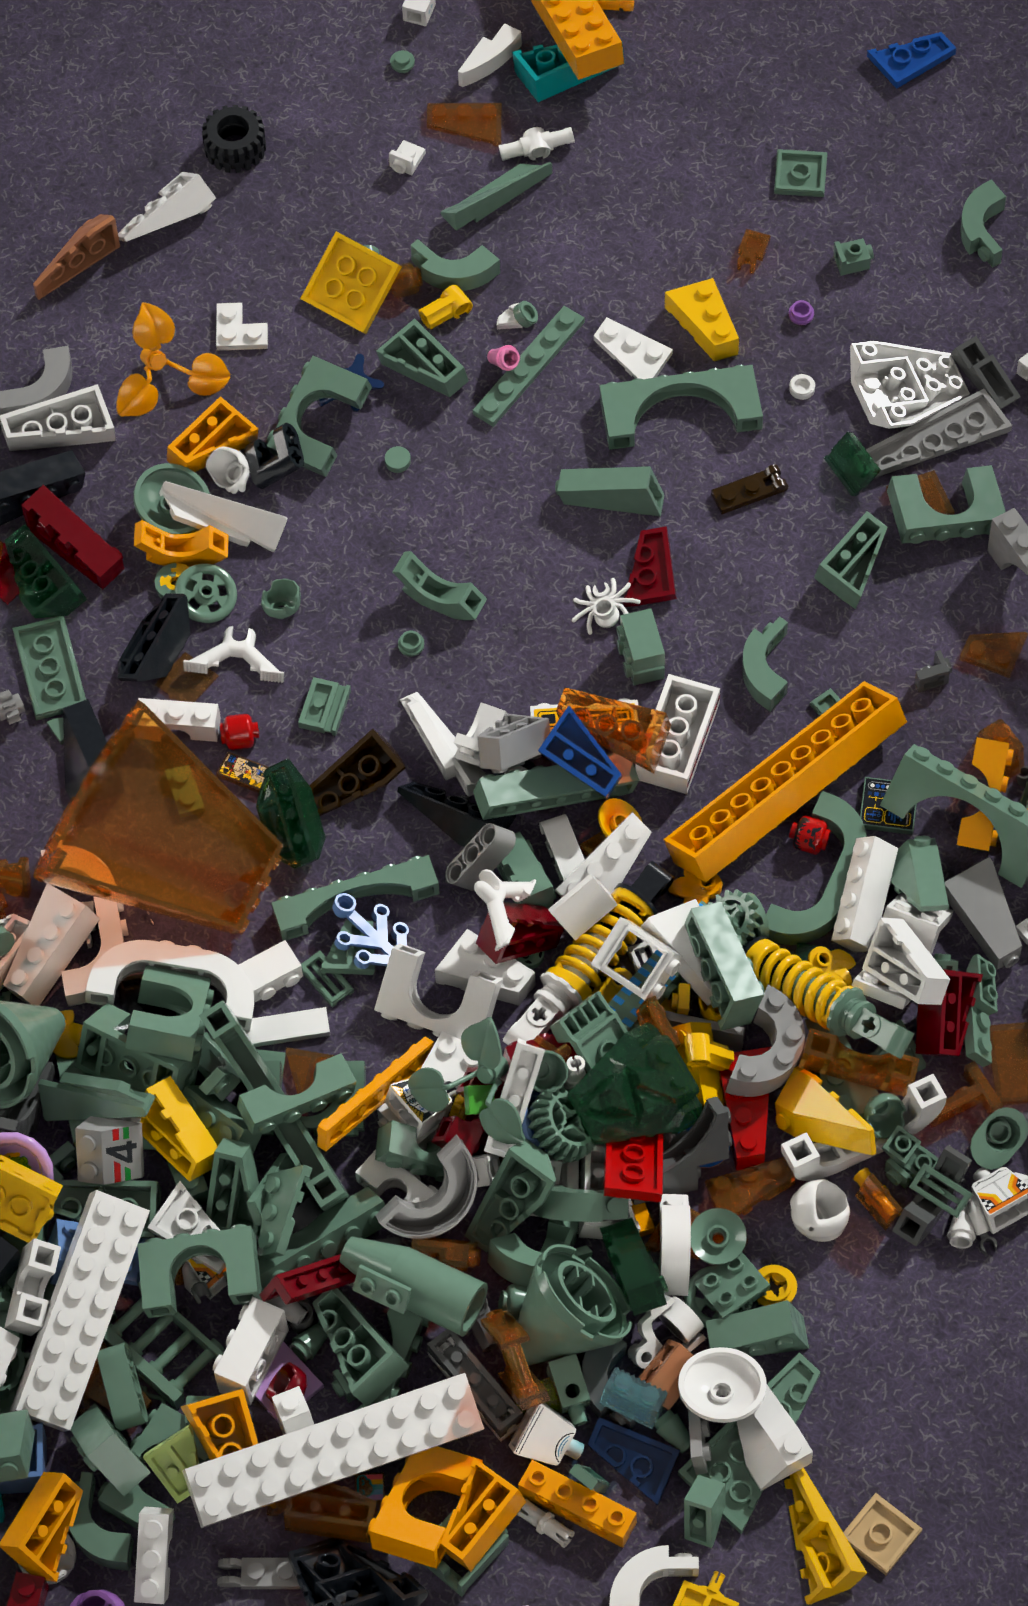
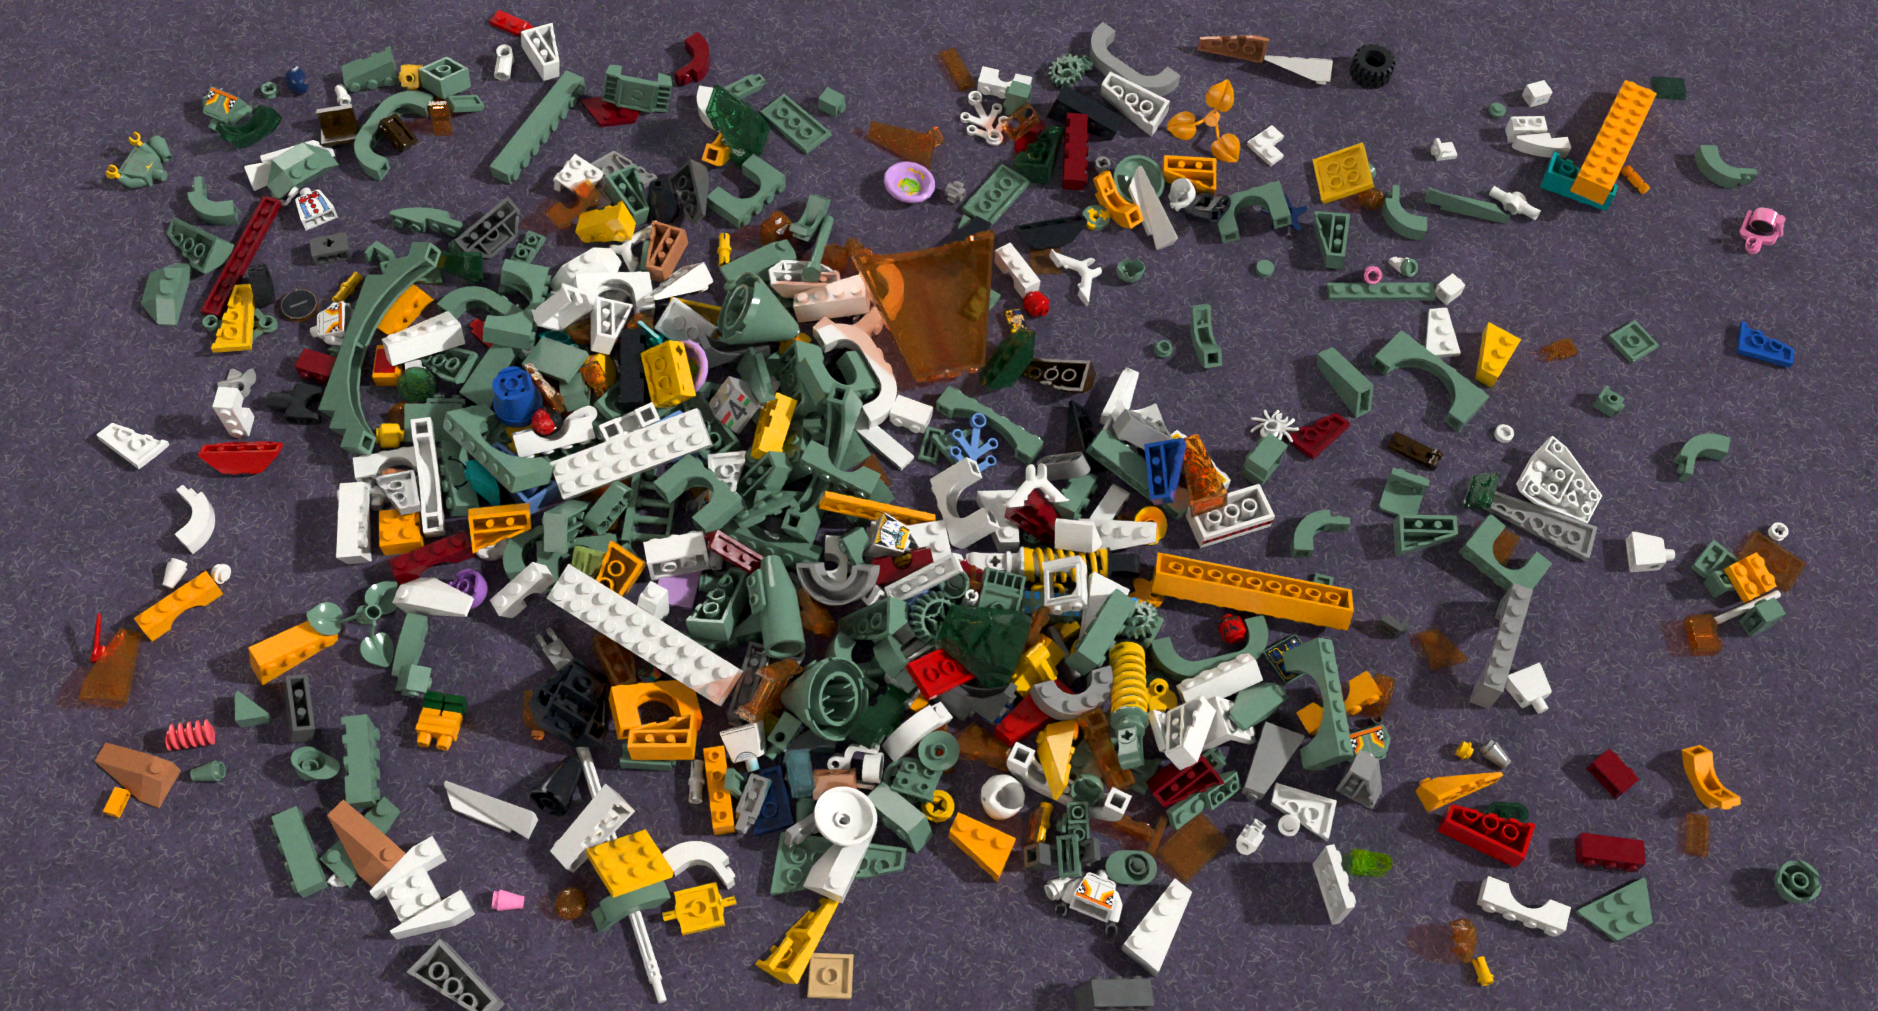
camera: 45 degrees right, 0 degrees up
(113, 514) = (1099, 161): none -> light grey bush
(221, 578) = (1106, 248): sand green plate -> none
(285, 1379) = (676, 589): dark red hair -> none
(324, 706) = (1088, 333): sand green plate -> none
(450, 304) = (1379, 229): yellow piece -> none
(453, 53) = (1525, 126): none -> white brick
(470, 120) = (1495, 163): clear orange wing -> none
(475, 1098) = (910, 562): bright green tile -> none
(483, 1045) = (929, 554): sand green plant -> none
(587, 296) = (1449, 289): none -> white brick
(619, 1476) = (751, 801): none -> light grey hinge
(704, 1510) = (765, 861): sand green slope -> none
(792, 542) = (1403, 492): none -> sand green bracket
(801, 312) = (1548, 401): medium lavender plate -> none
(856, 1270) = (982, 843): none -> light orange wedge
(985, 372) = (1608, 521): dark grey slope -> none

